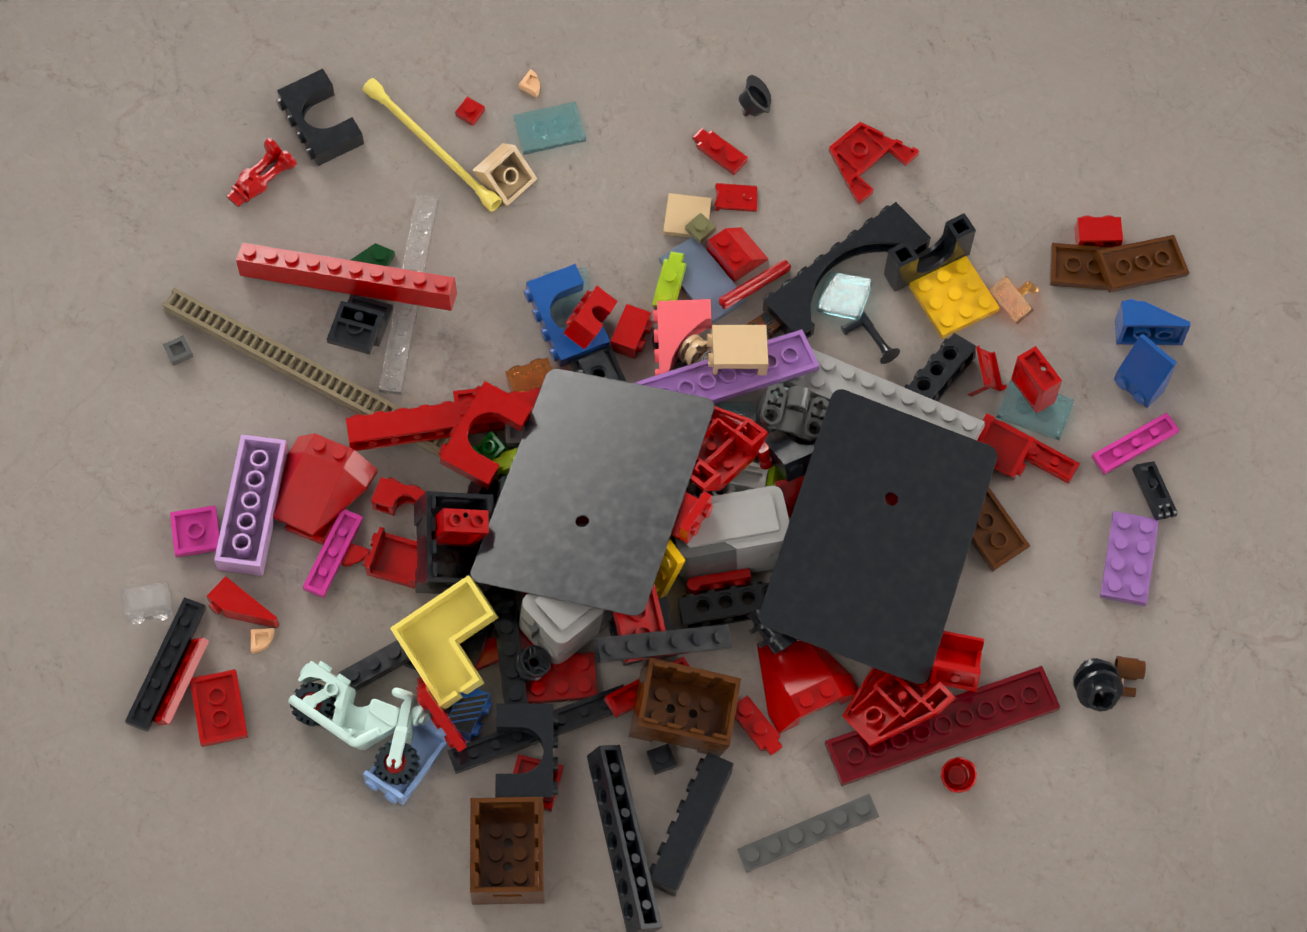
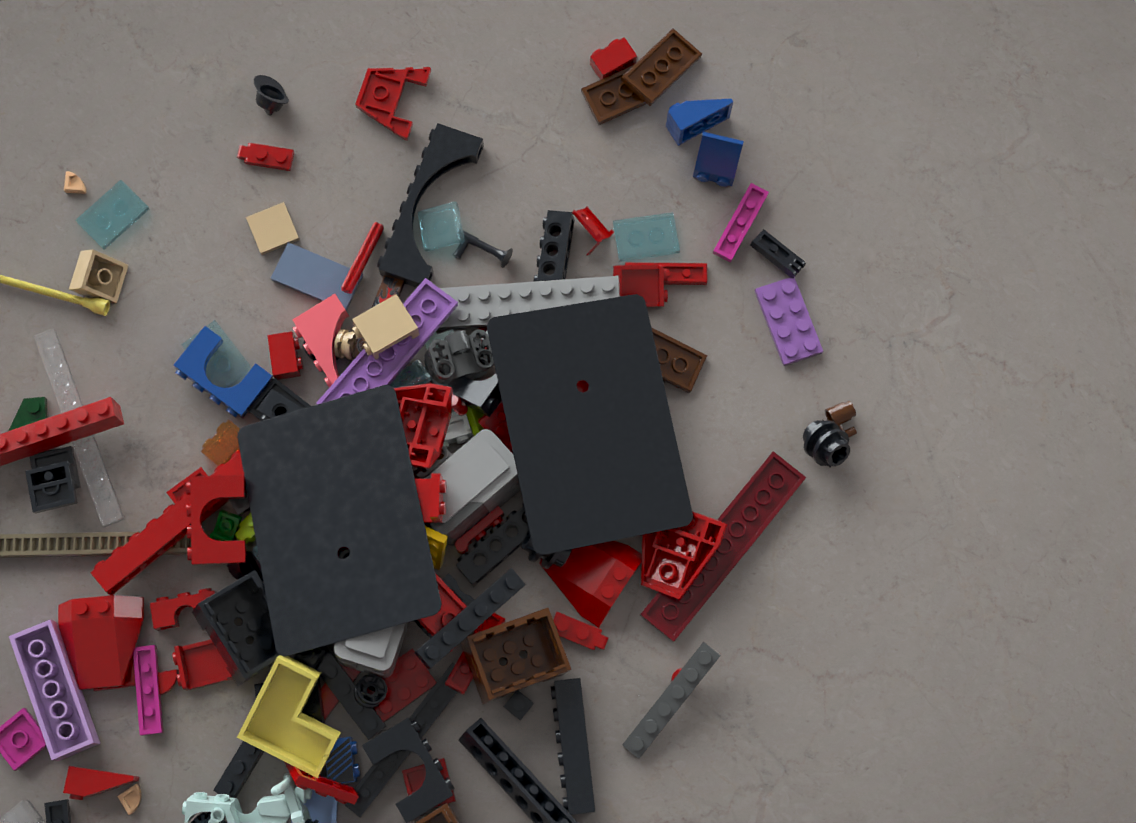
camera: 30 degrees left, 10 degrees up
(456, 530) = (244, 615): red window -> none
(470, 111) = (36, 236): red plate -> none
(588, 315) = (243, 374): red arch -> none
(670, 278) = (290, 293): lime hinge -> none
(700, 228) = (290, 234): olive plate -> none
(735, 197) = (303, 189): red piece -> none
(735, 252) = (331, 238): red slope -> none
(906, 266) = (477, 174): black arch -> none
(954, 297) = (528, 178): yellow plate -> none
(958, 661) = (708, 488): red panel -> none
(958, 775) = (760, 580): red hair -> none
(1013, 299) = (576, 153): clear orange plate -> none
(1028, 376) = (638, 220): red window -> none

